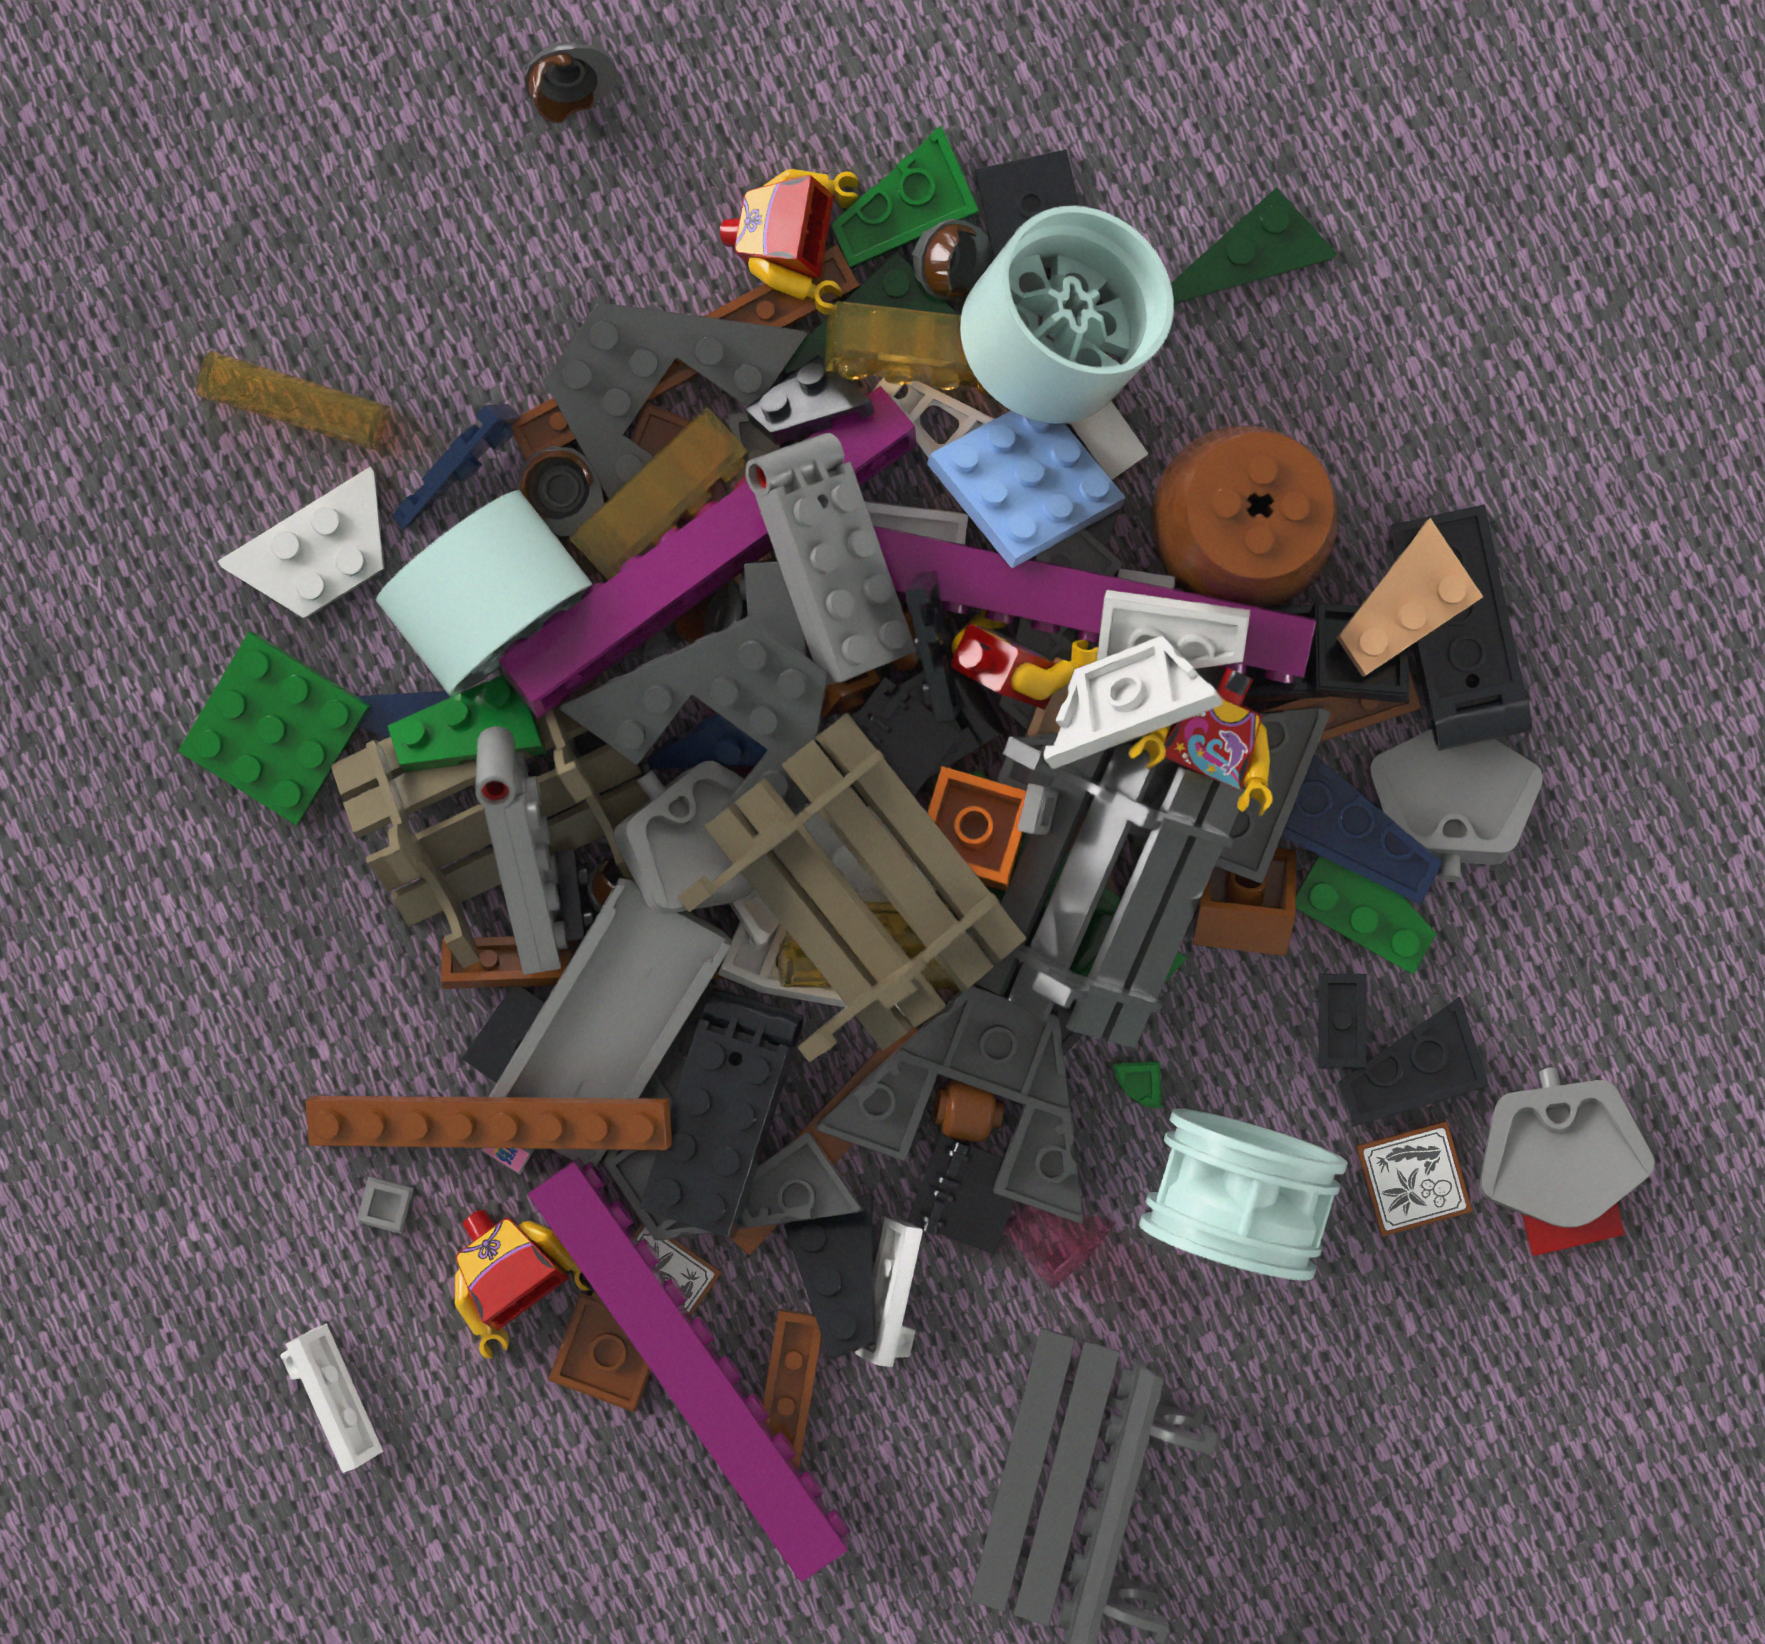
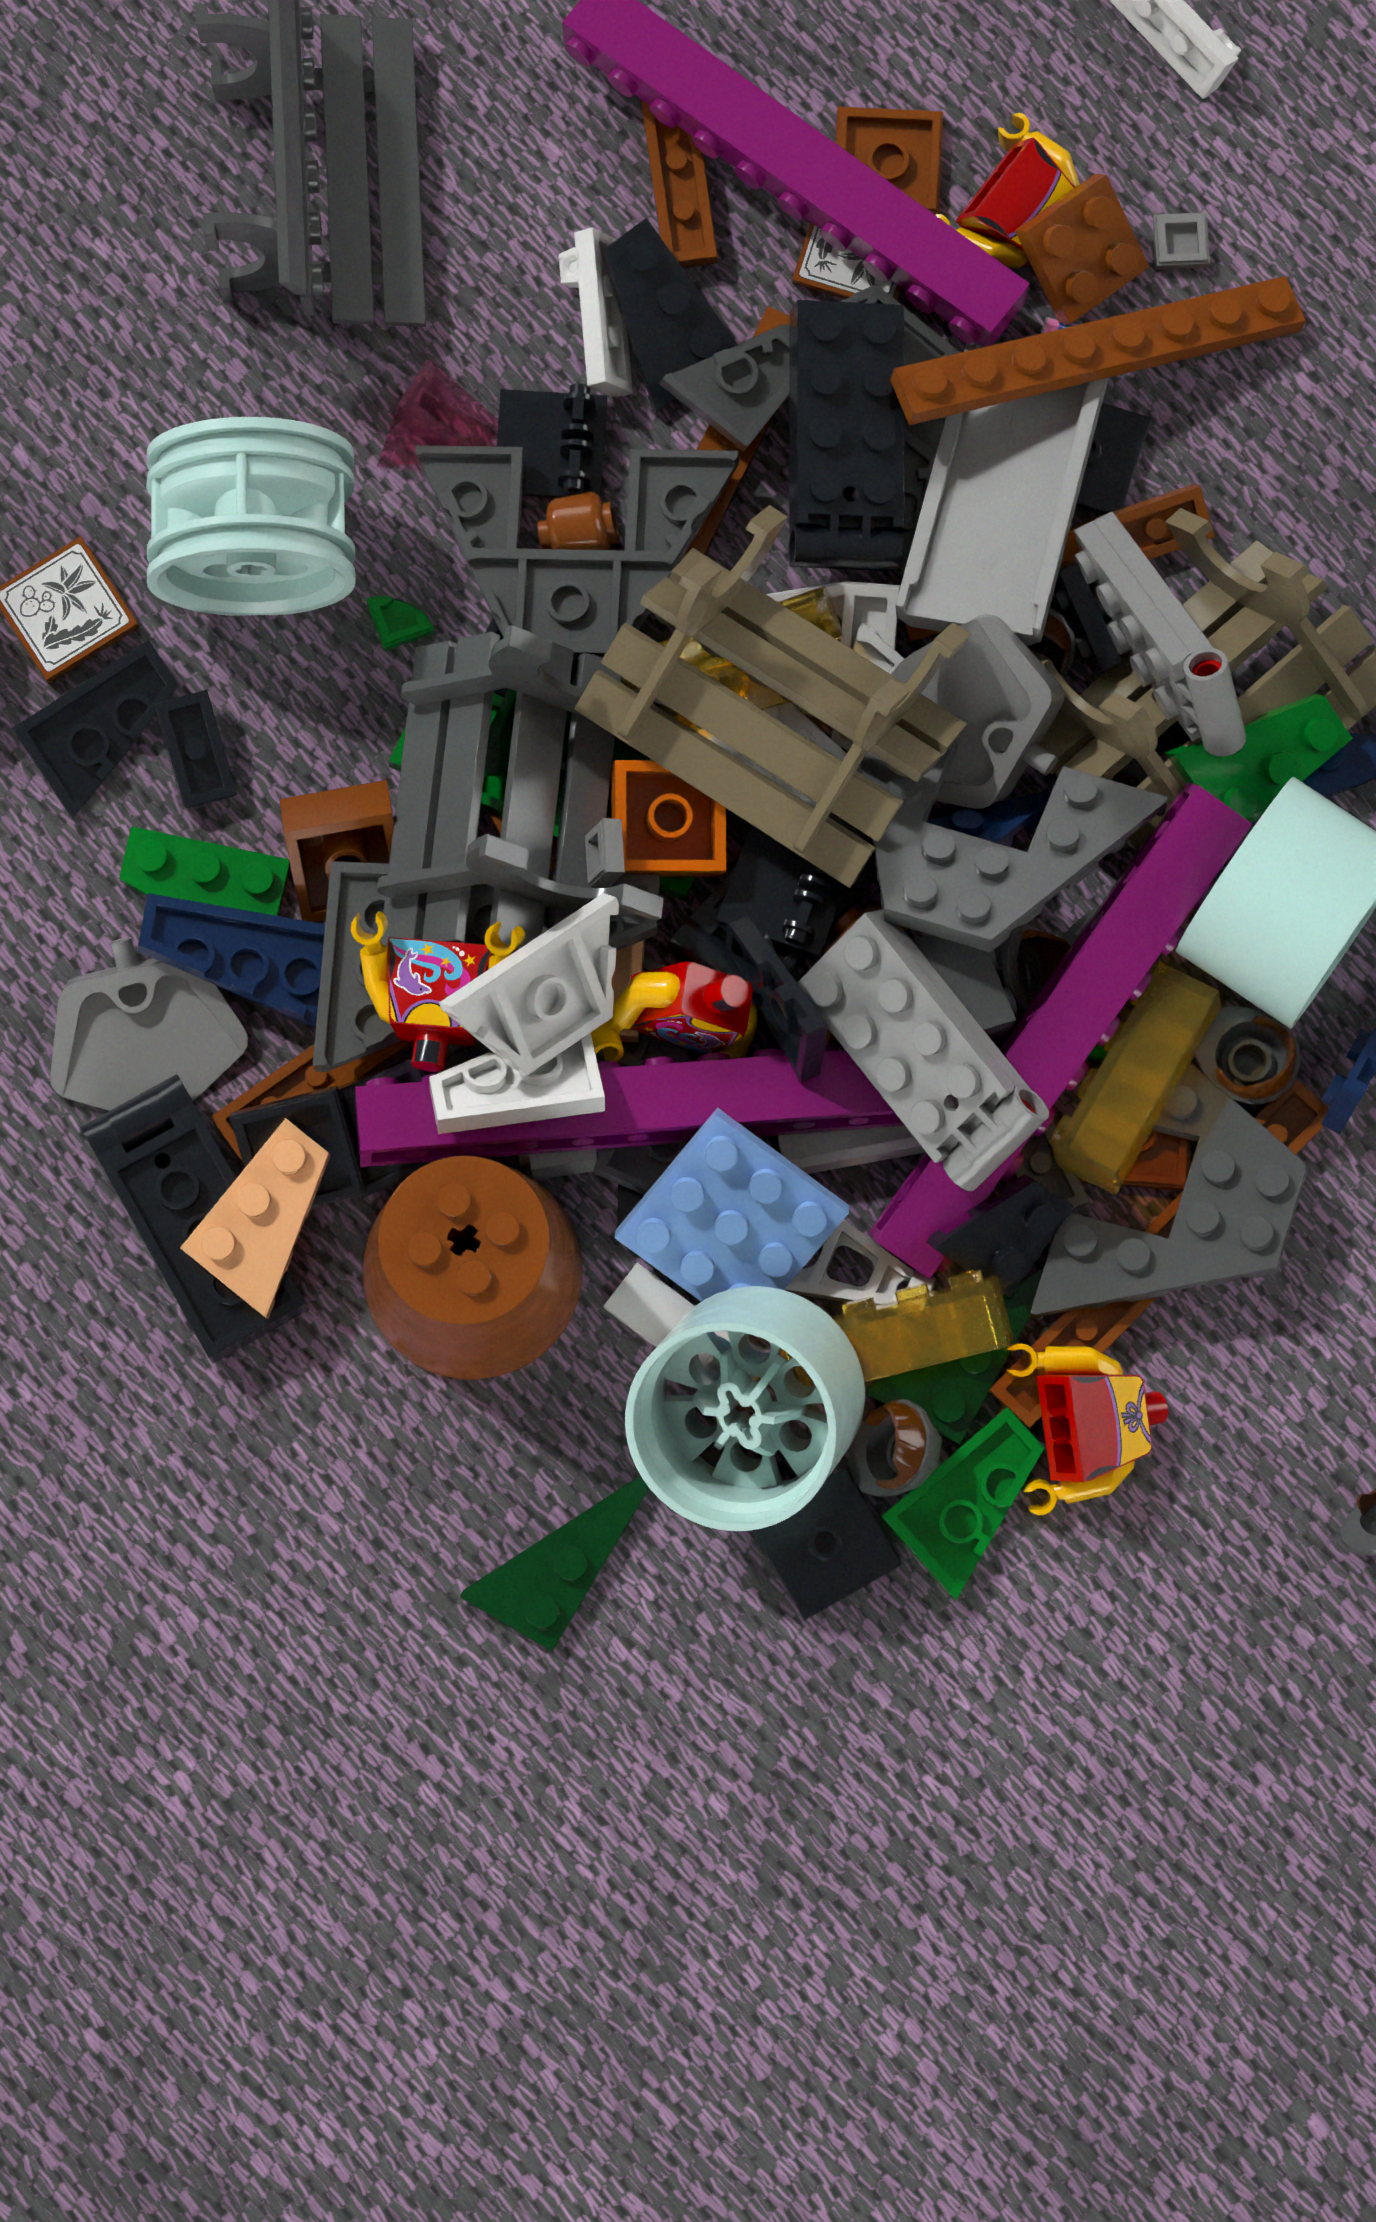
camera: 165 degrees right, 10 degrees down
(471, 1218) = (1082, 248): none -> dark orange plate

